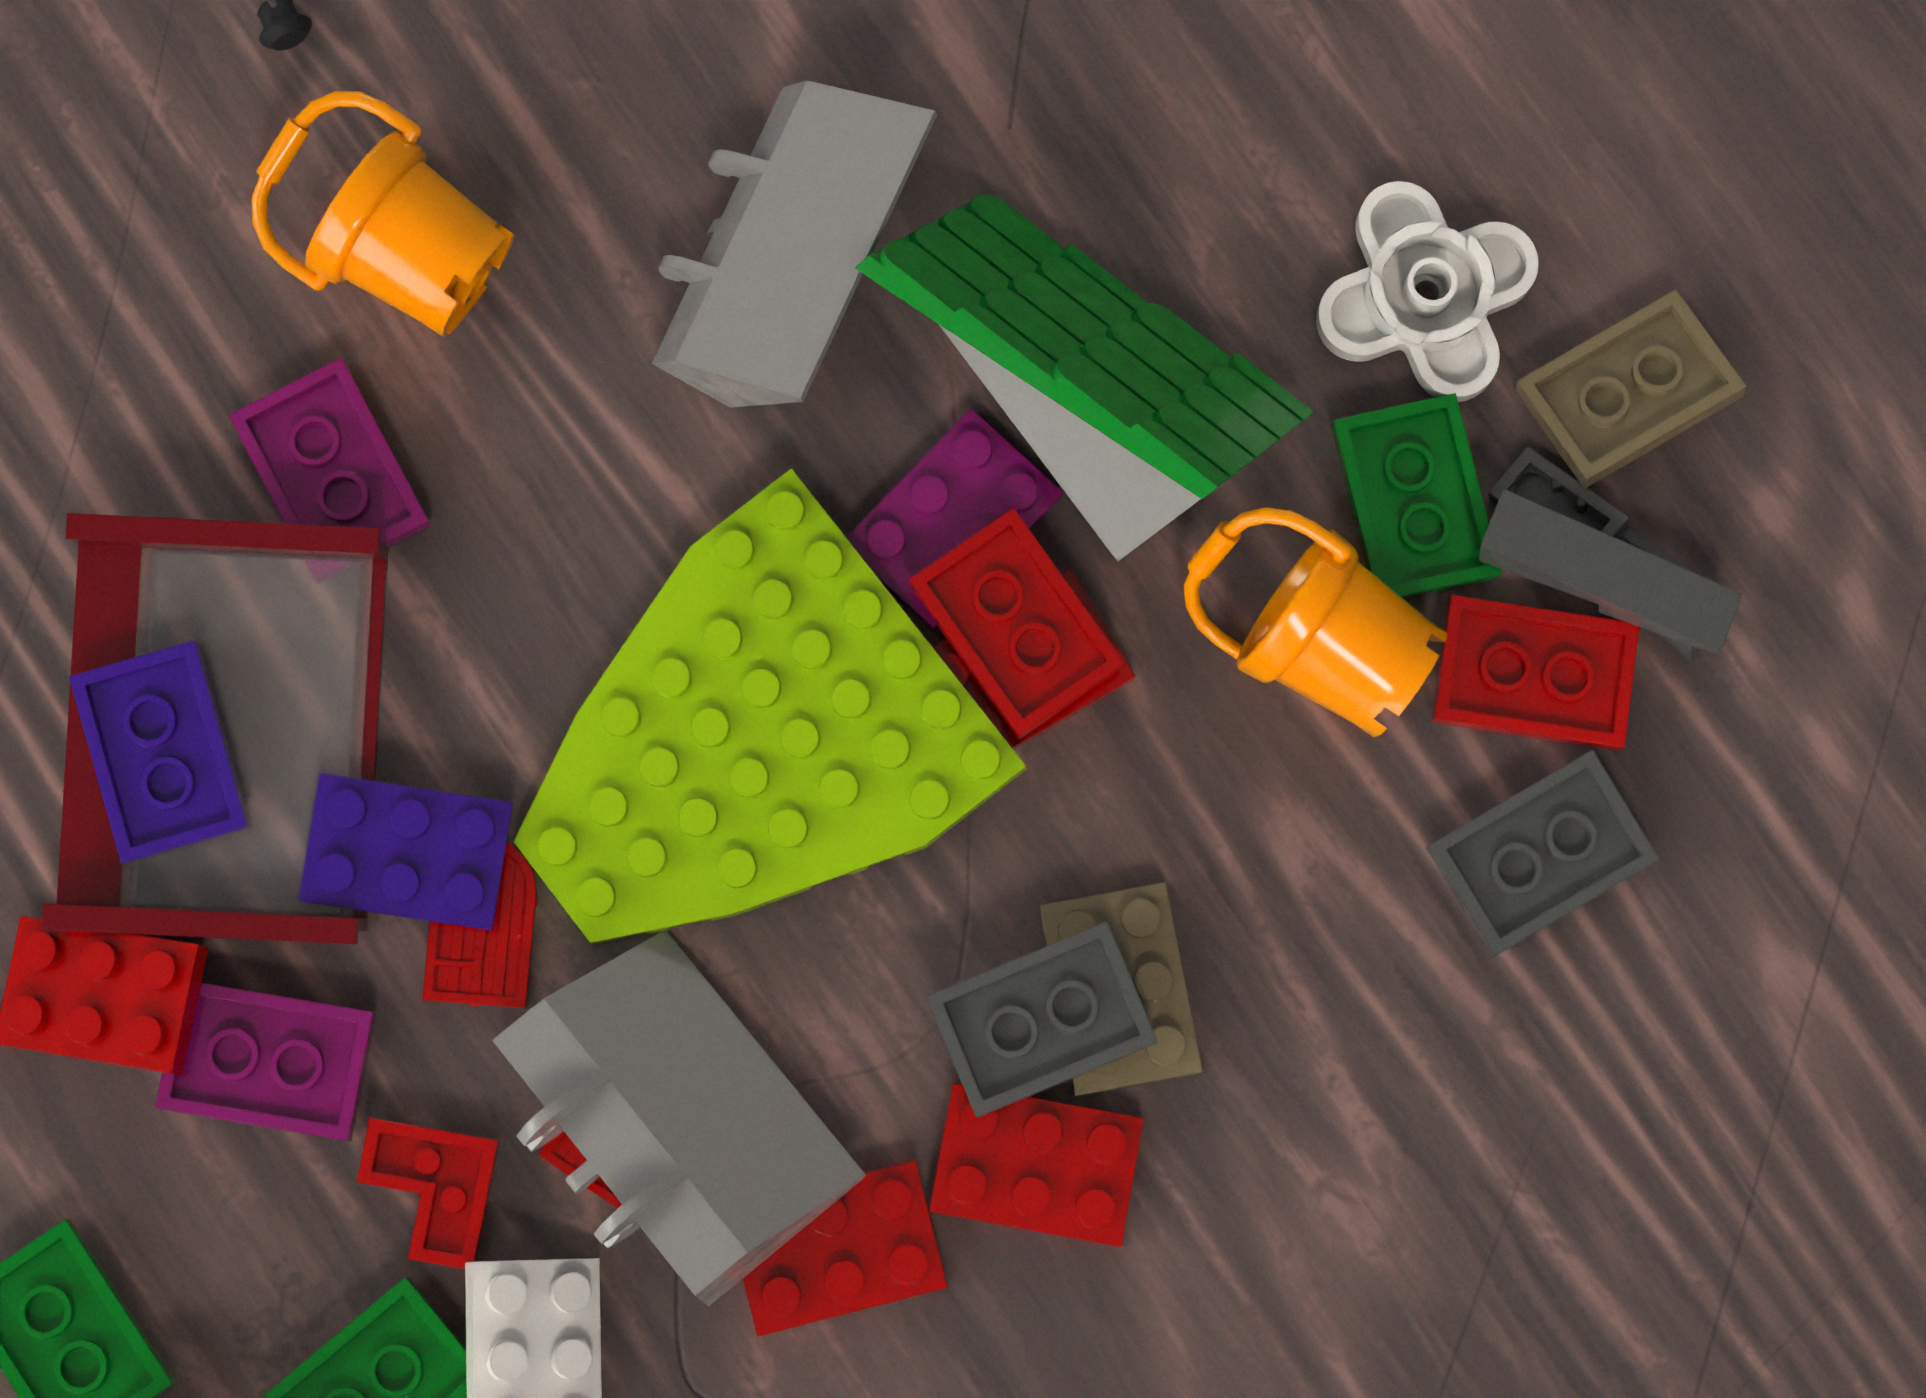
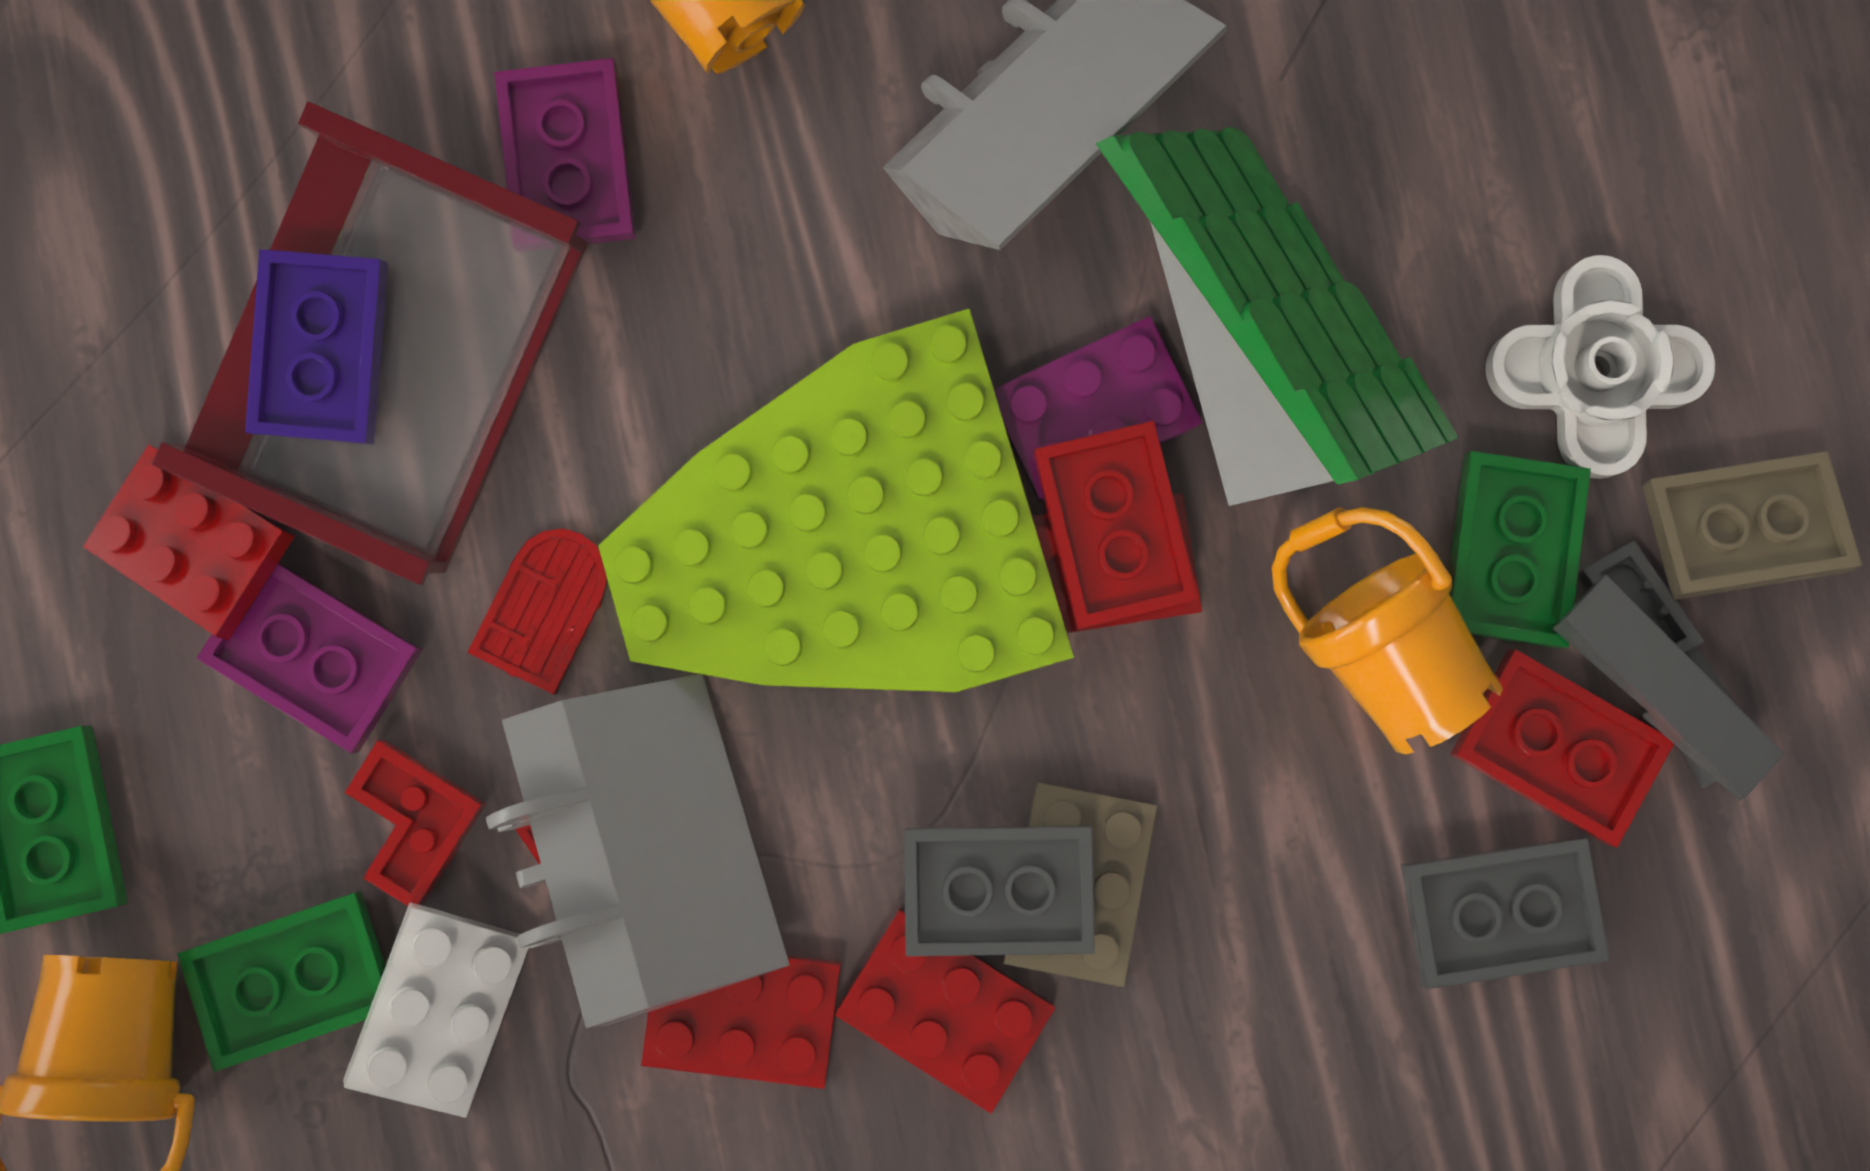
camera: 25 degrees right, 5 degrees up
(406, 851) = (499, 518): dark purple plate -> none

